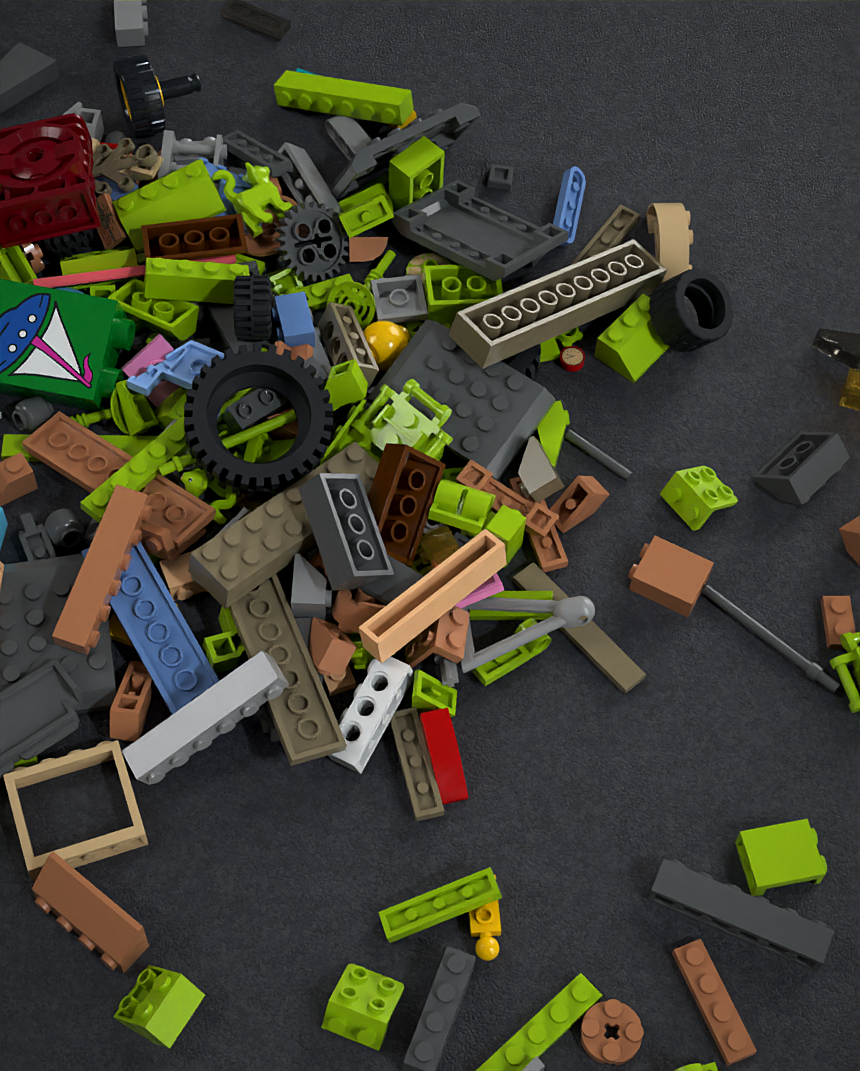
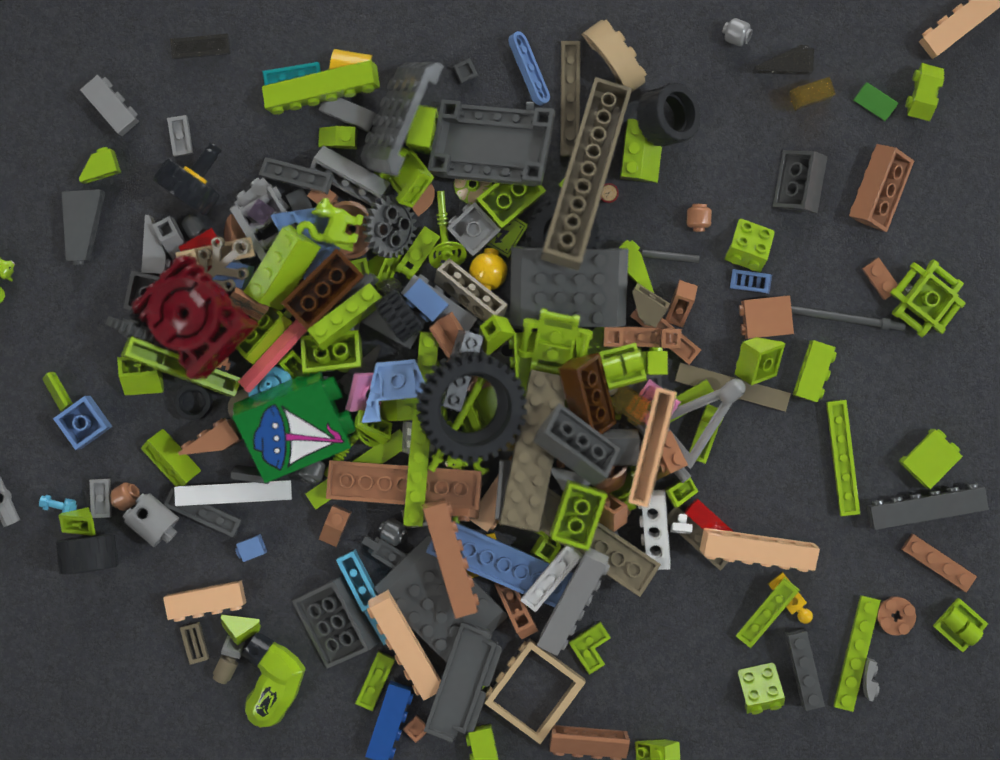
camera: 35 degrees left, 30 degrees up
(73, 50) = (100, 166): none -> lime slope
(174, 66) = (180, 135): none -> light grey plate
(180, 802) = (585, 645): none -> lime tile
(191, 151) = (260, 211): none -> clear purple tile
(197, 675) = (551, 577): none -> white tile
(288, 608) = (578, 514): none -> lime brick
(329, 155) = (338, 137): none -> lime slope
(404, 726) = (681, 526): none -> white tile
(484, 817) = (759, 549): none -> light nougat brick
(632, 608) = (759, 360): none -> lime slope
(658, 434) = (699, 217): none -> nougat head
(663, 788) = (843, 457): none -> lime plate
(691, 667) = (814, 371): none -> lime brick
(693, 540) = (768, 277): none -> medium blue slope
(819, 295) = (737, 32): none -> light grey head

